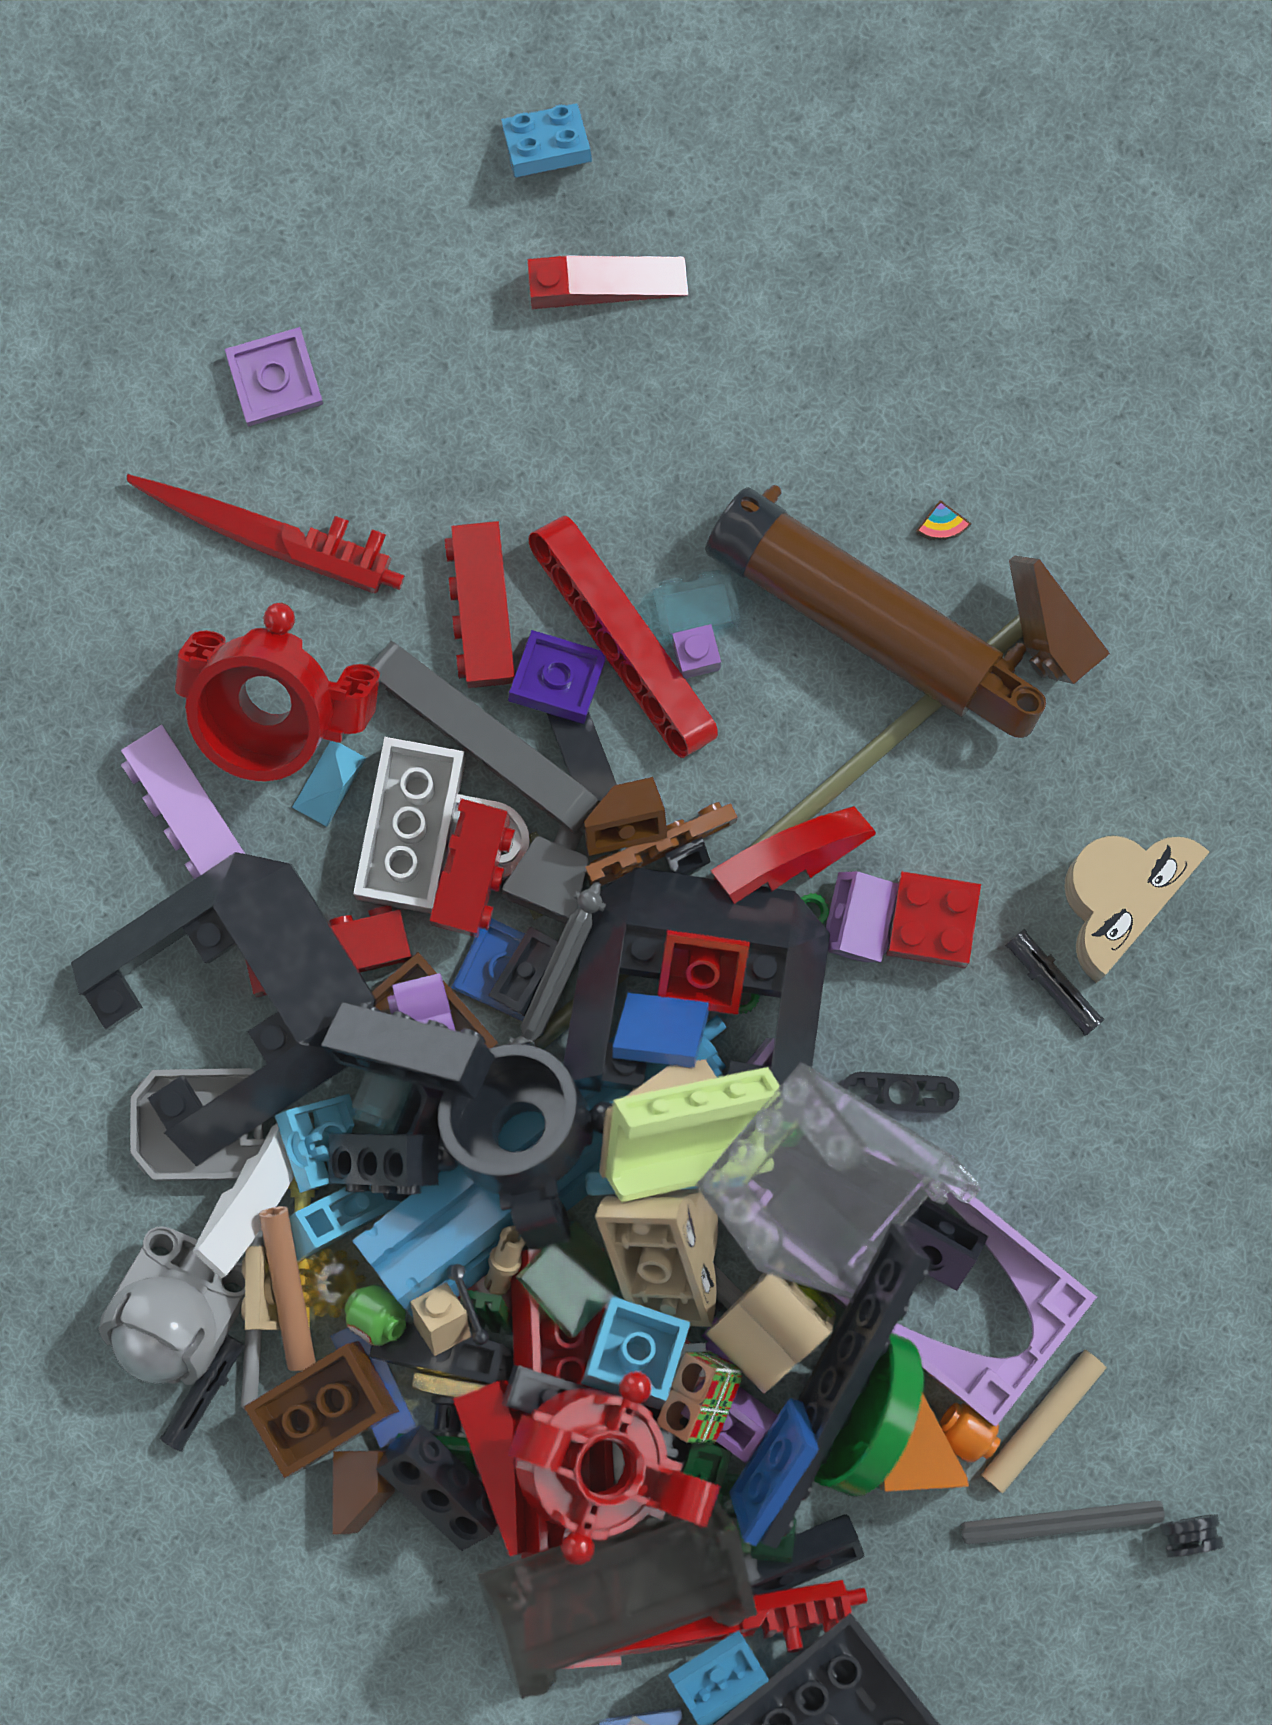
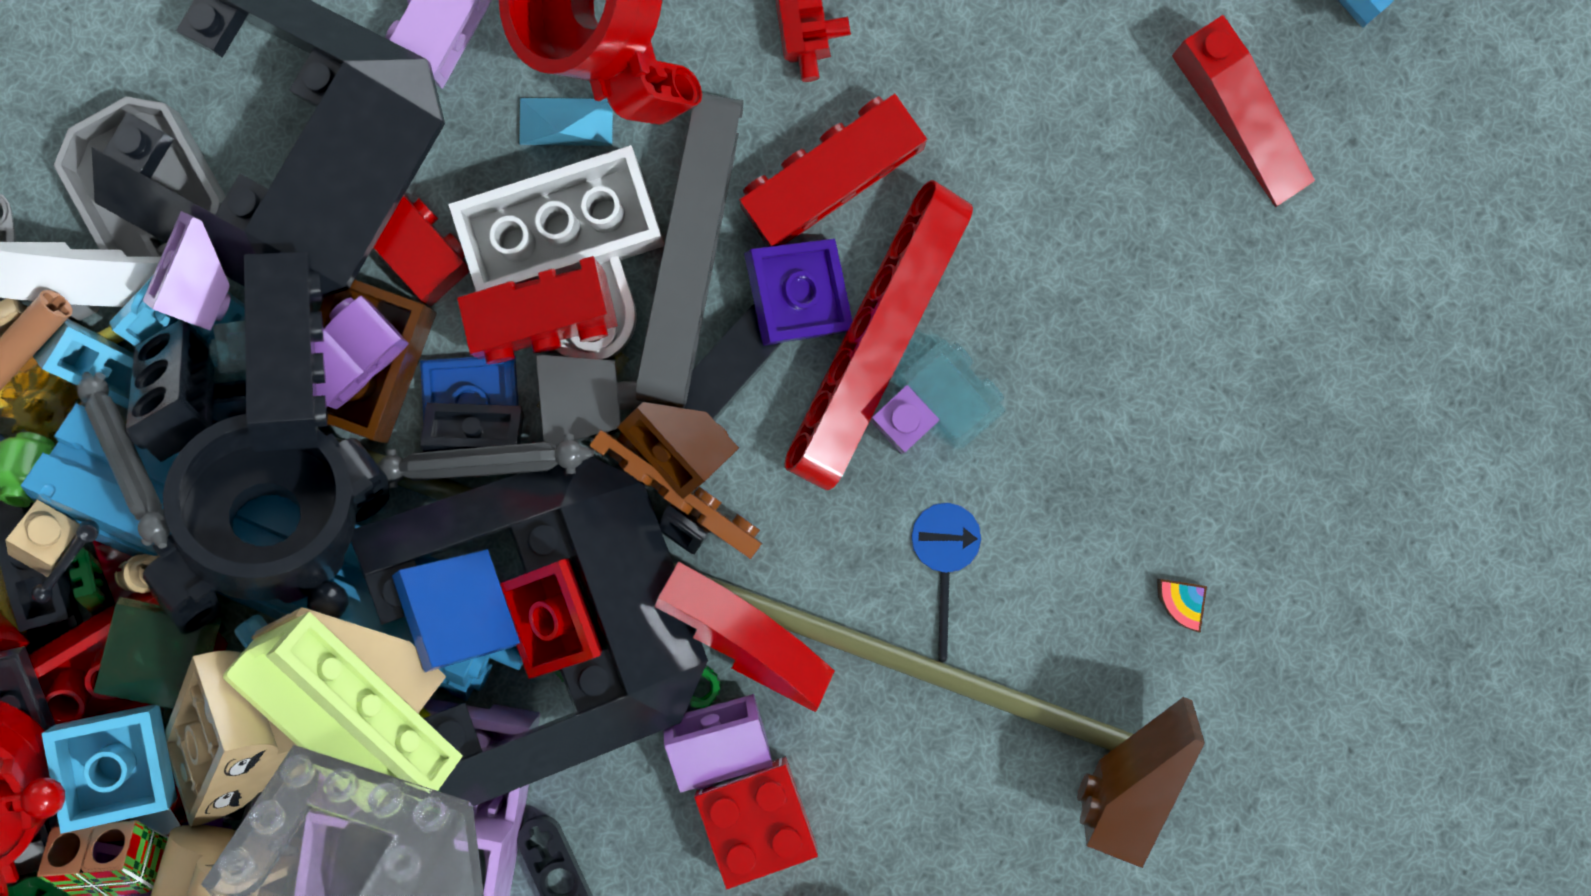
camera: 60 degrees right, 5 degrees up
(304, 1104) = (189, 277): none -> slope
(420, 1210) = (124, 459): none -> dark grey wheel
(803, 672) = (945, 541): none -> blue piece
(873, 613) = (1045, 587): reddish brown piece -> none

